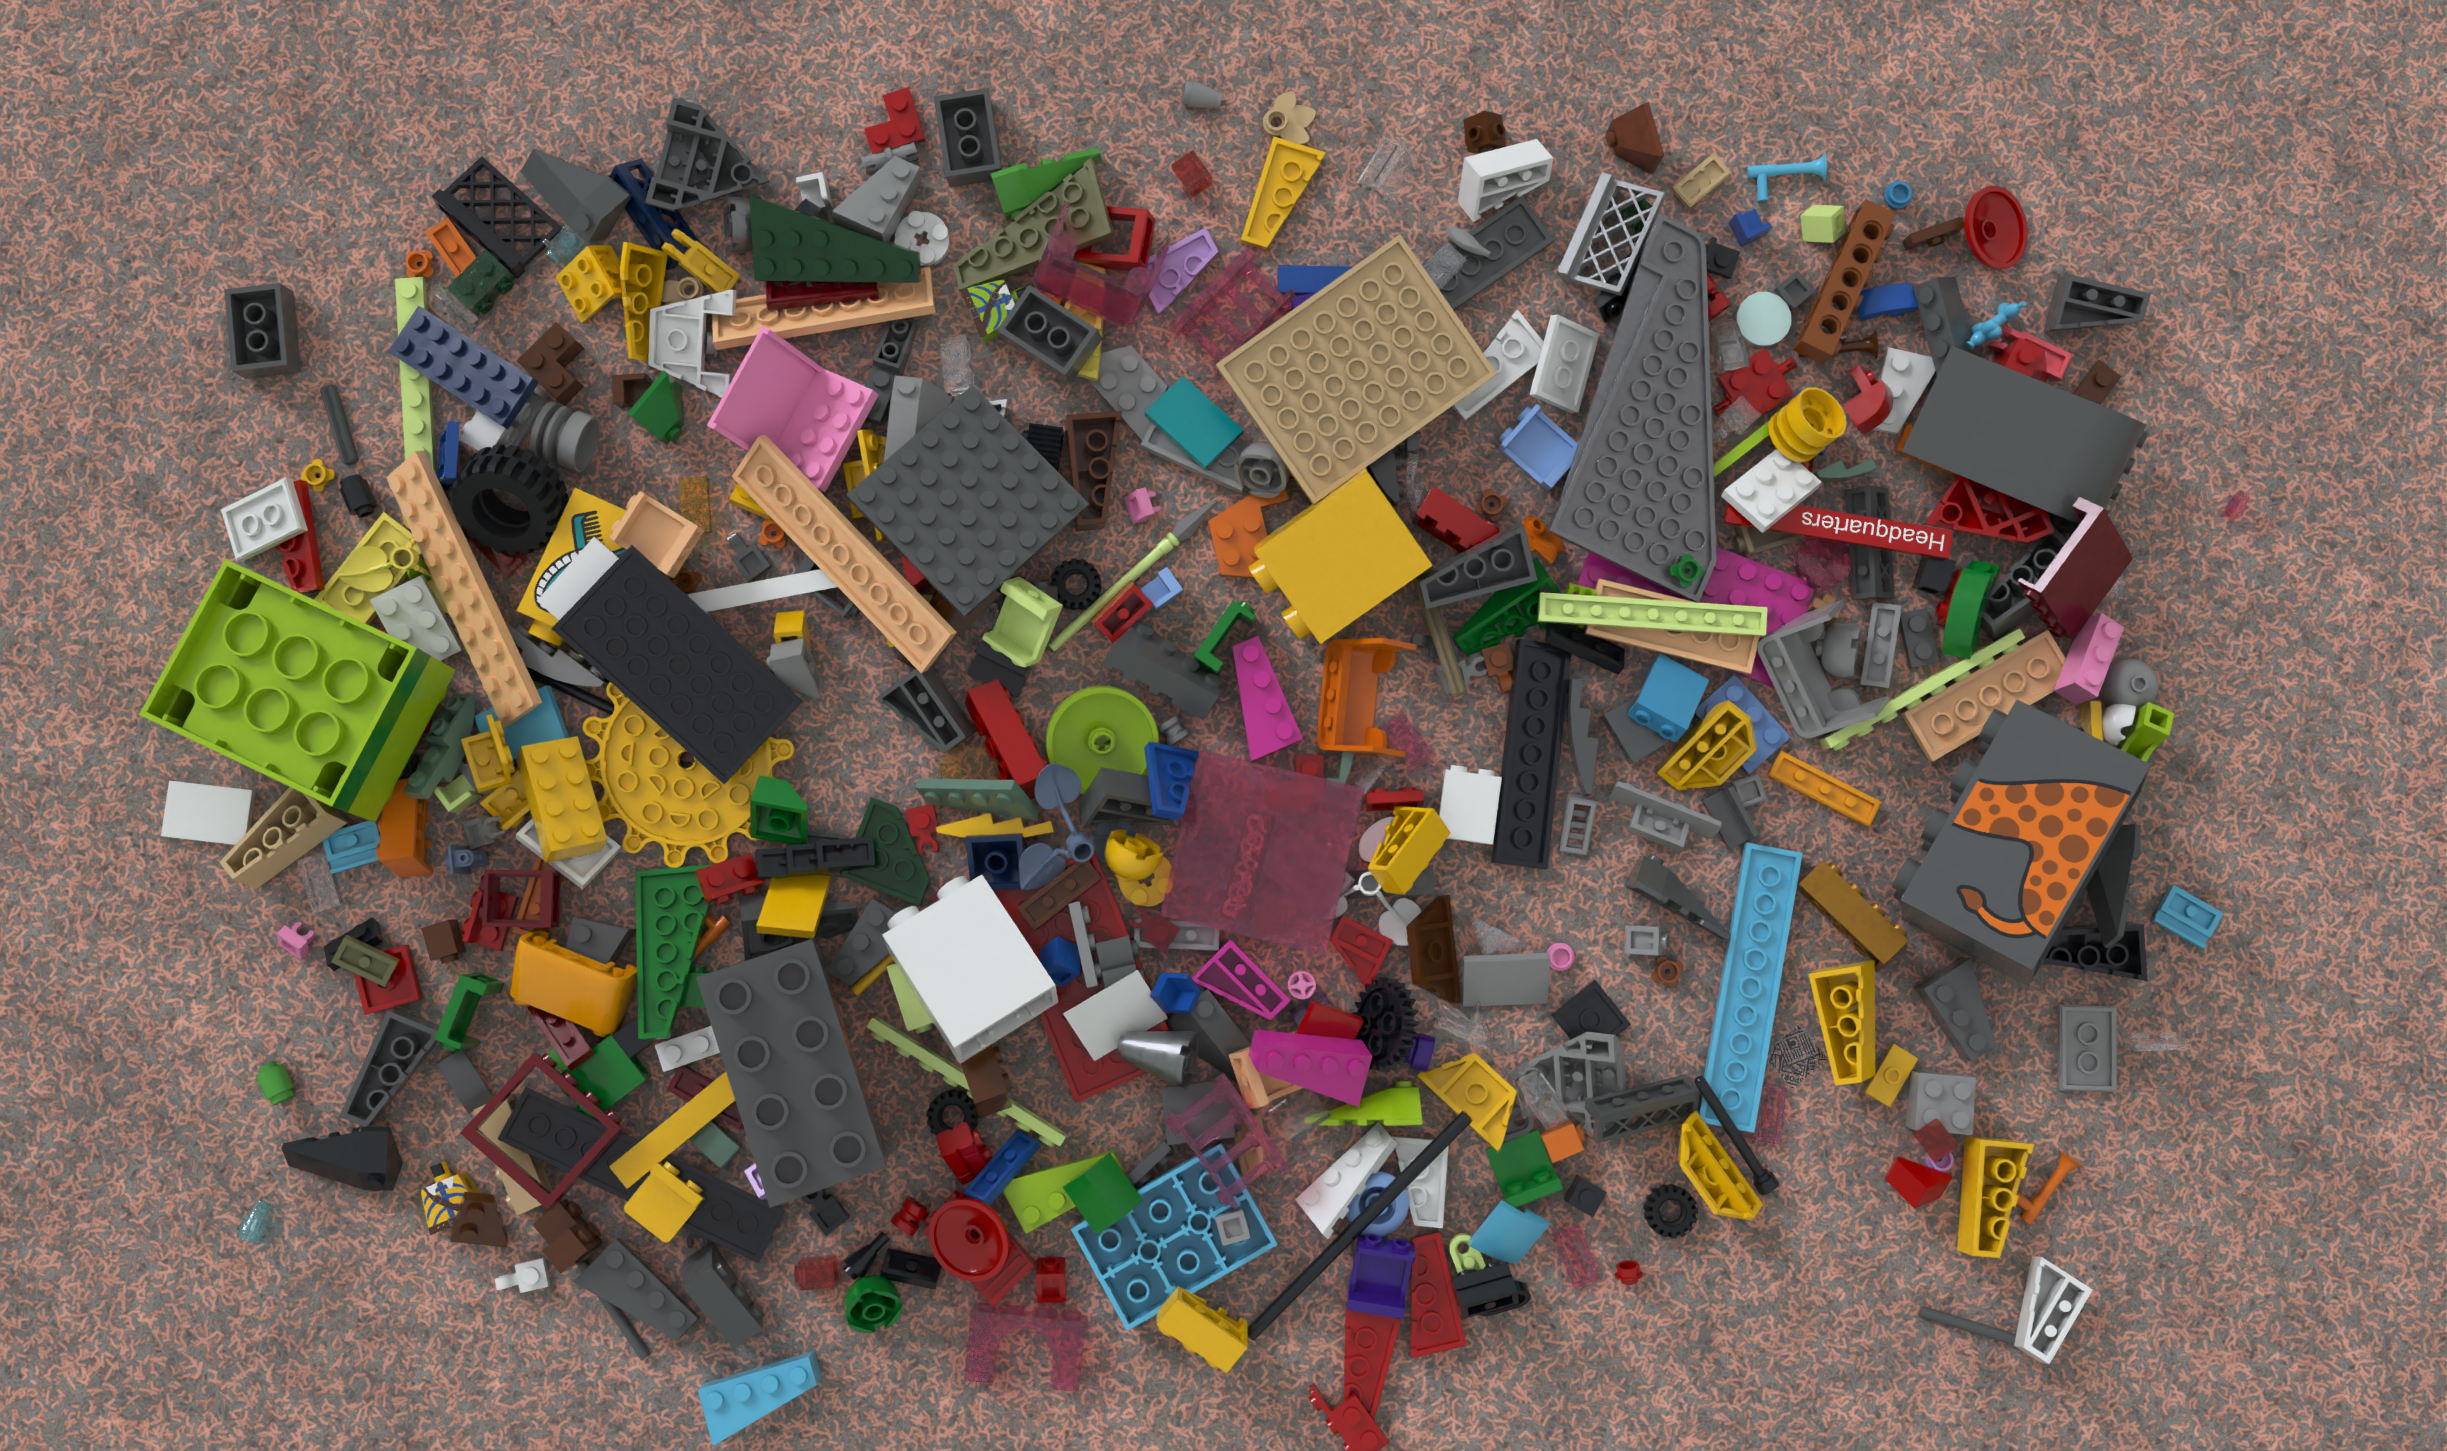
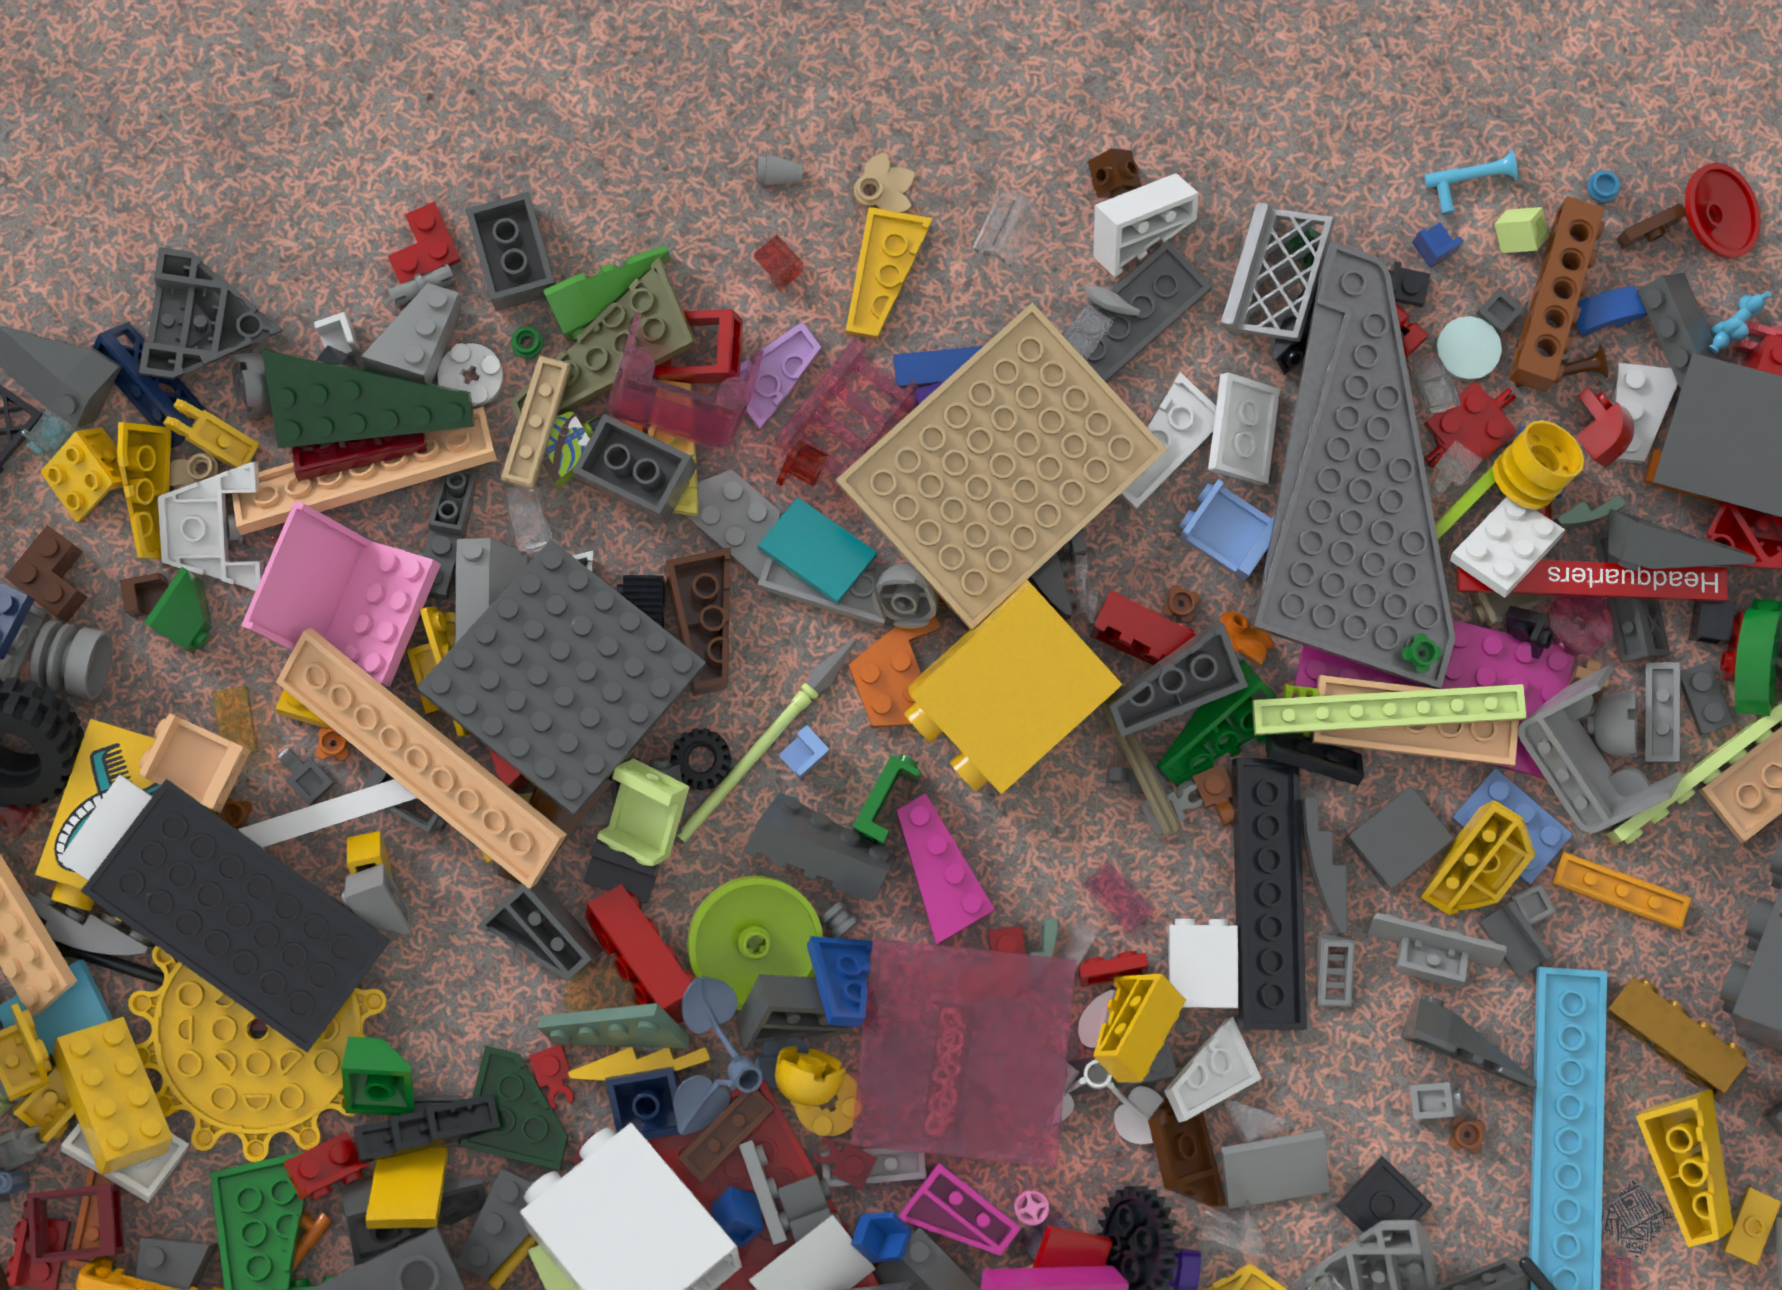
camera: 10 degrees left, 5 degrees down
(969, 209) = (523, 333): none -> green plate
(972, 285) = (536, 422): none -> tan tile
(1121, 611) = (760, 784): red brick -> none
(1140, 505) = (766, 656): bright pink tile -> none
(1191, 347) = (803, 463): none -> clear red panel
(1350, 695) = (1044, 850): orange windscreen -> none
(1360, 948) = (1096, 1153): red wing -> none
(1465, 895) = (1213, 1073): none -> white wing
(1560, 956) = (1337, 1132): bright pink plate -> none
(1636, 138) = (1291, 159): copper slope -> none
(1668, 698) = (1422, 806): dark azure panel -> none
(1701, 181) = (1373, 198): tan plate -> none
(1780, 560) = (1530, 627): none -> black bracket
(1891, 504) = (1649, 545): none -> dark grey wedge

